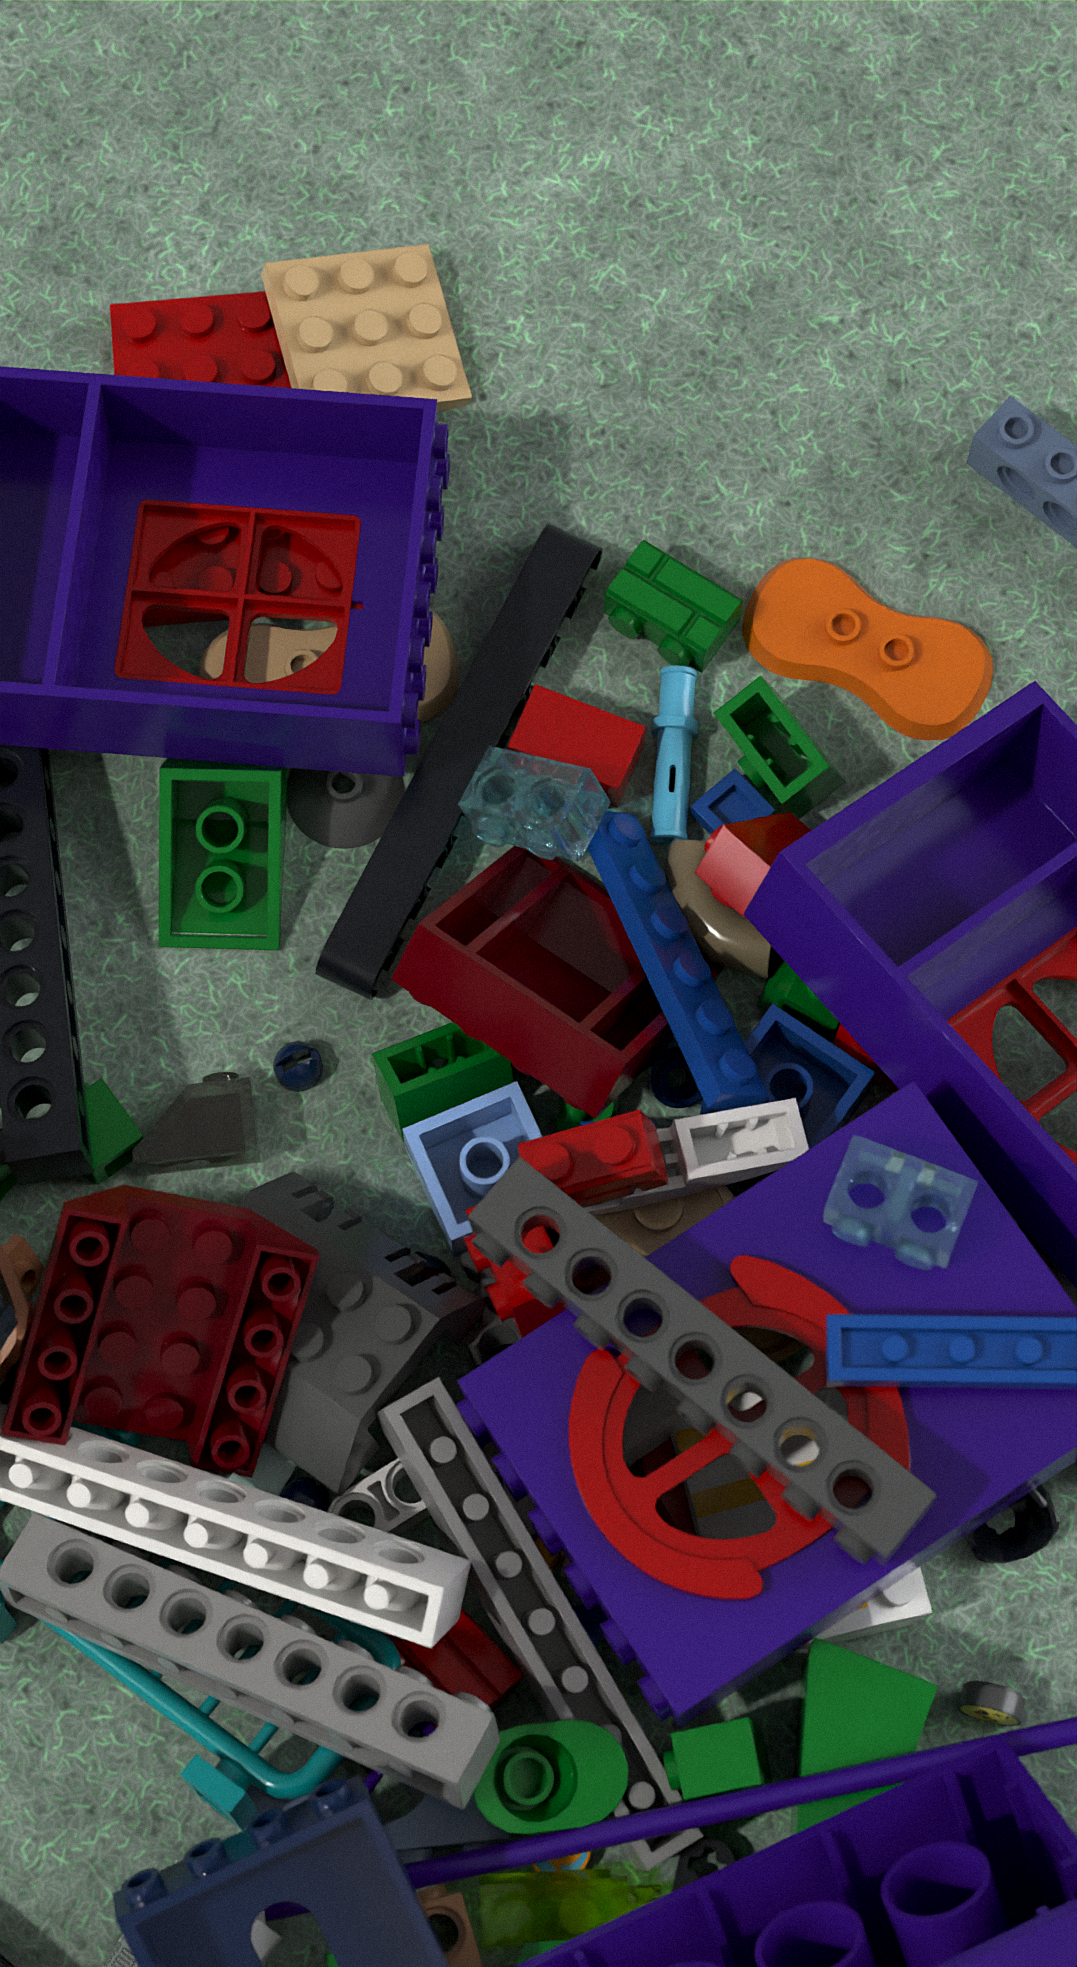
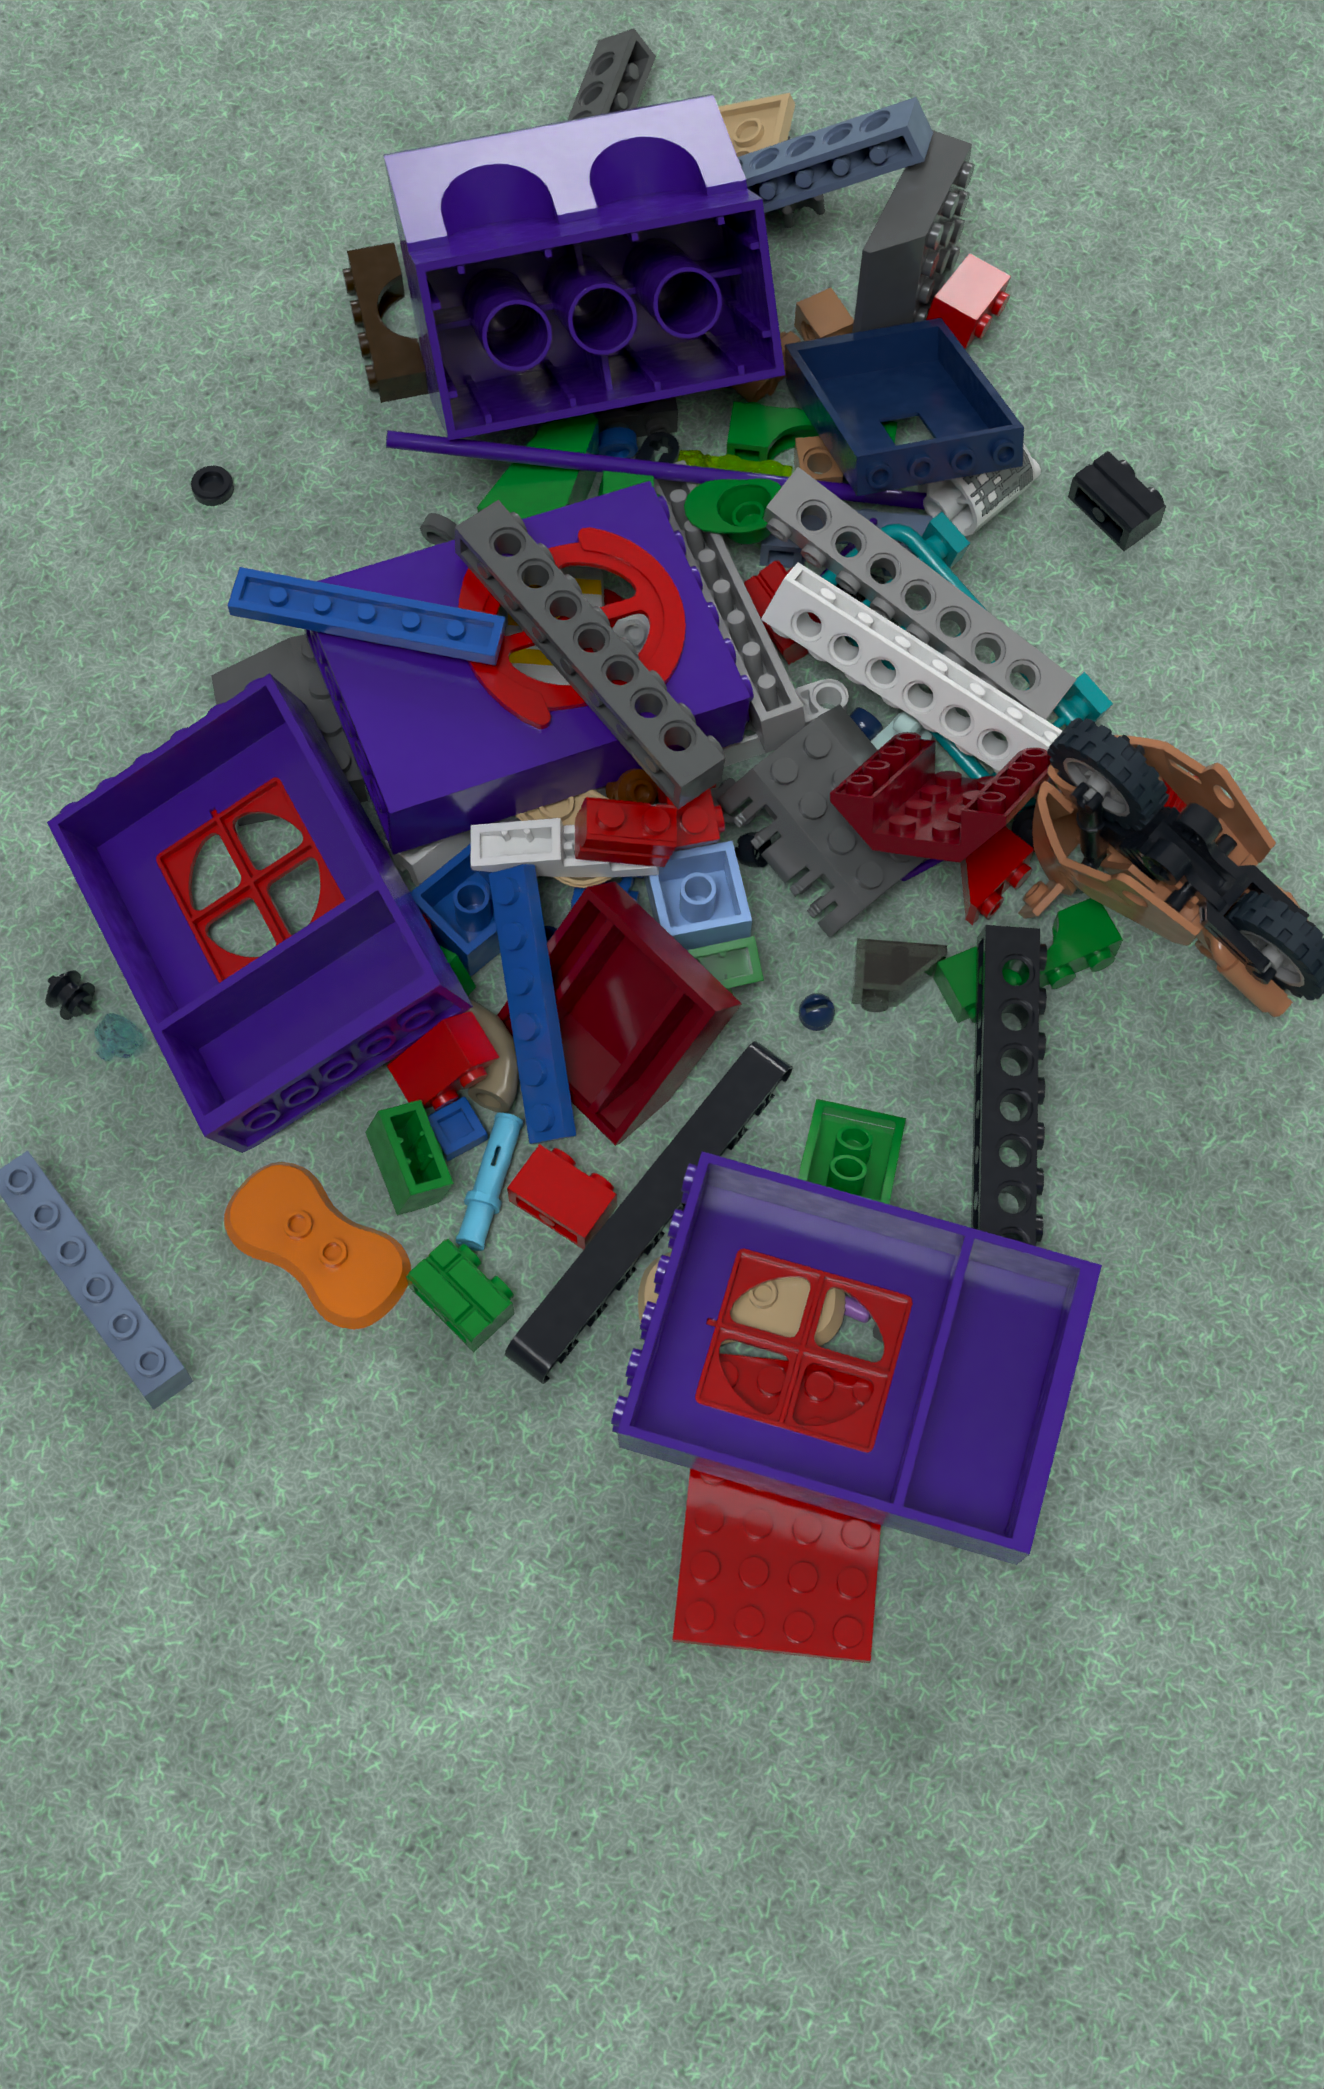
camera: 170 degrees left, 5 degrees down
(367, 325) = (658, 1578): tan plate -> none
(534, 804) = (600, 1151): clear light blue brick -> none
(906, 1187) = (417, 729): clear light blue brick -> none

